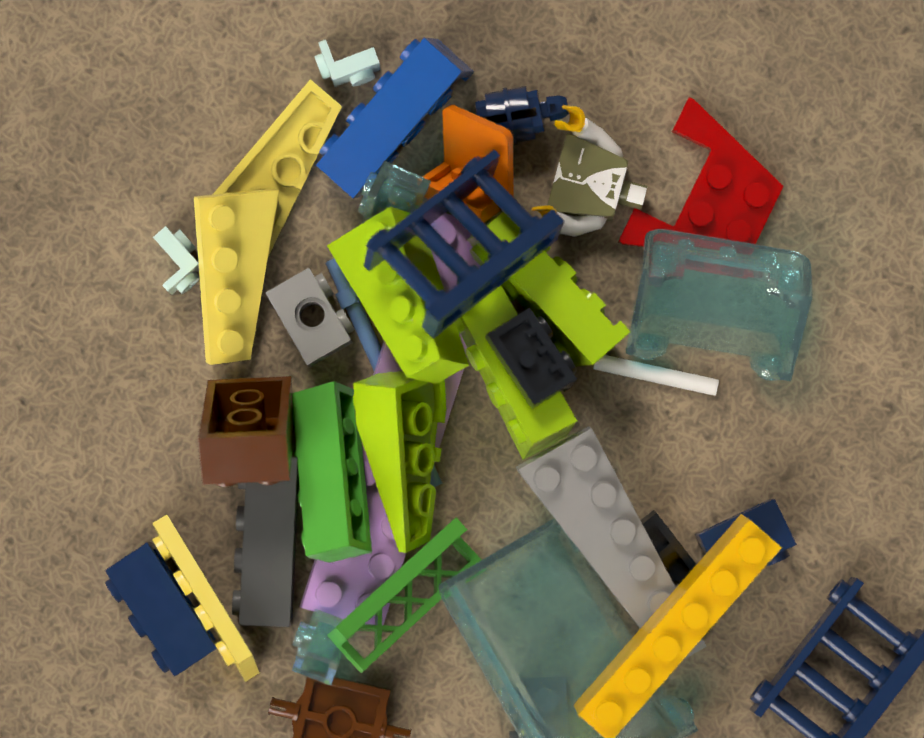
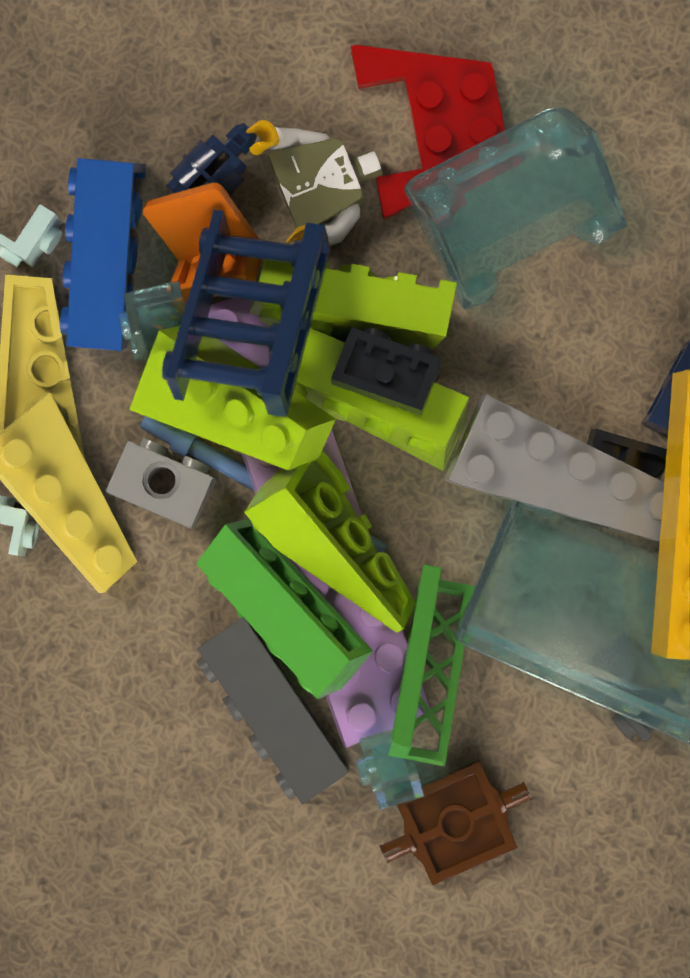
camera: 30 degrees left, 0 degrees up
(160, 609) = (222, 842): dark blue brick -> none
(210, 611) = (267, 810): light yellow wing -> none
(247, 431) = (180, 627): reddish brown brick -> none
(657, 374) = (505, 308): white bar -> none

